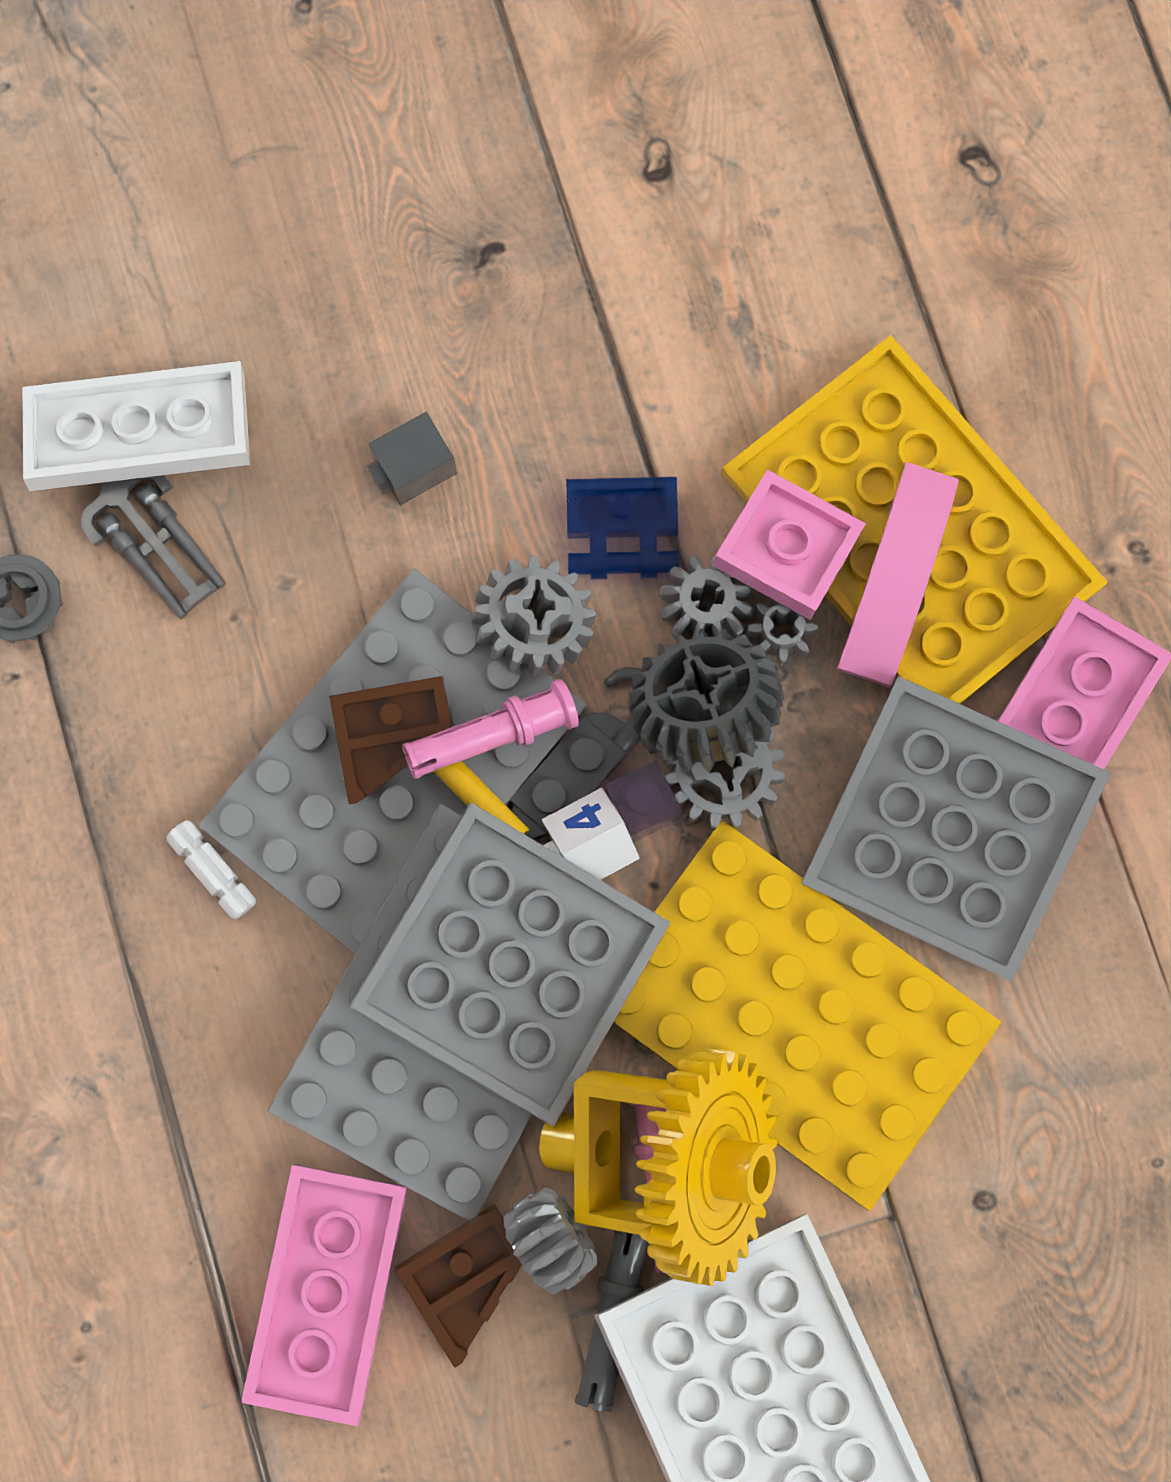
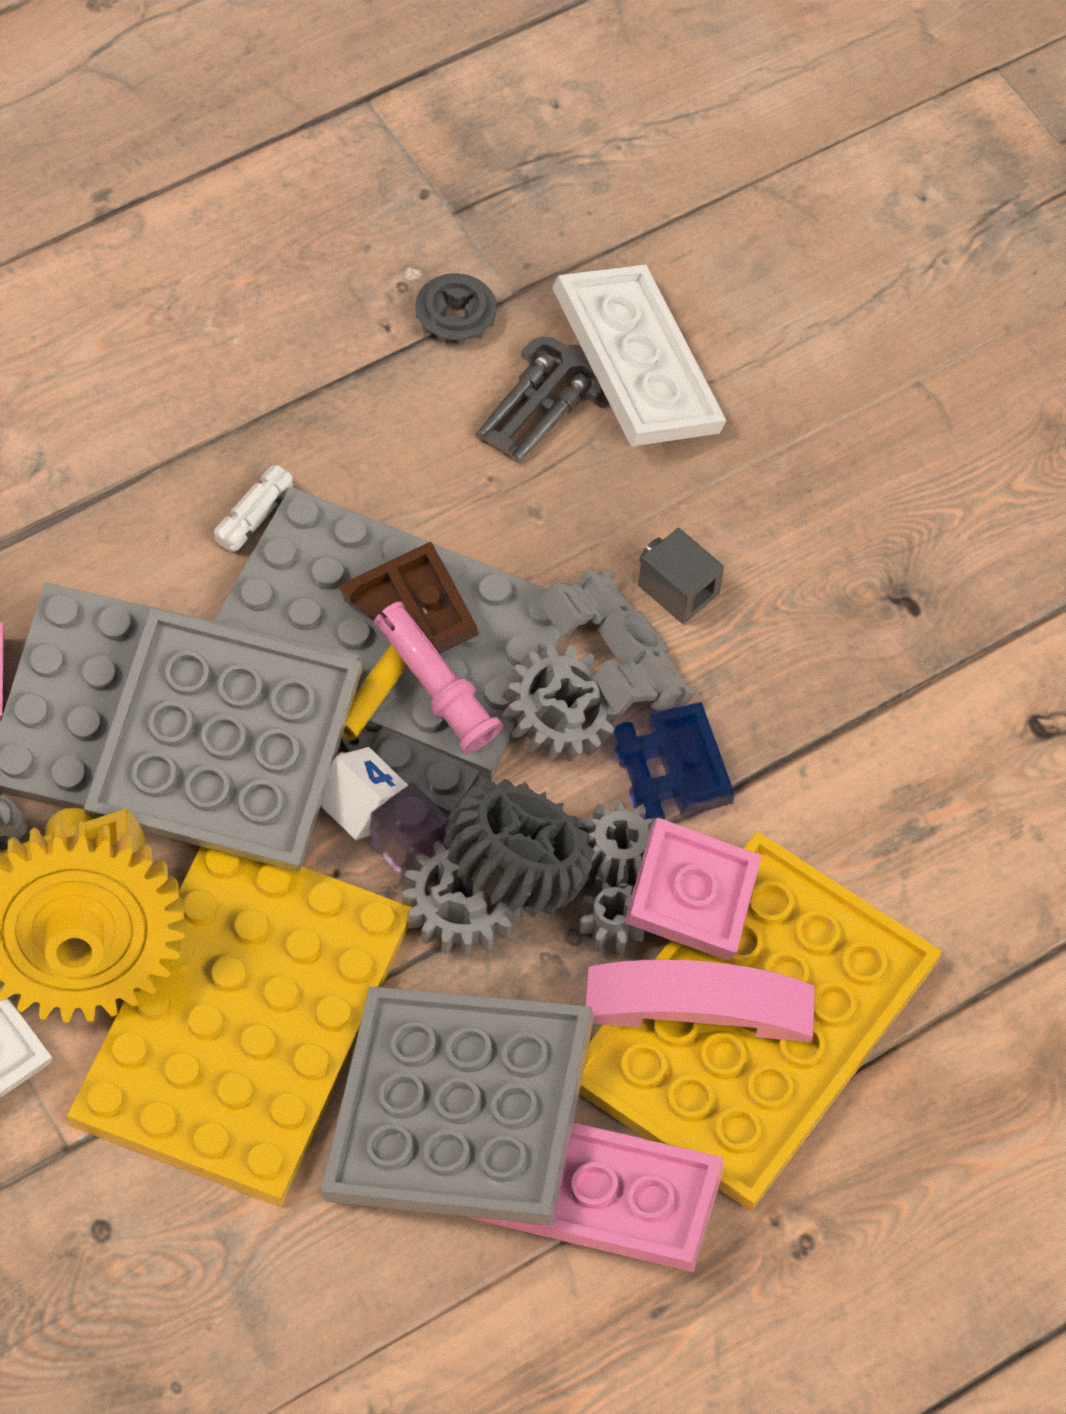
camera: 70 degrees right, 20 degrees down
(427, 547) = (630, 636): none -> light grey piece

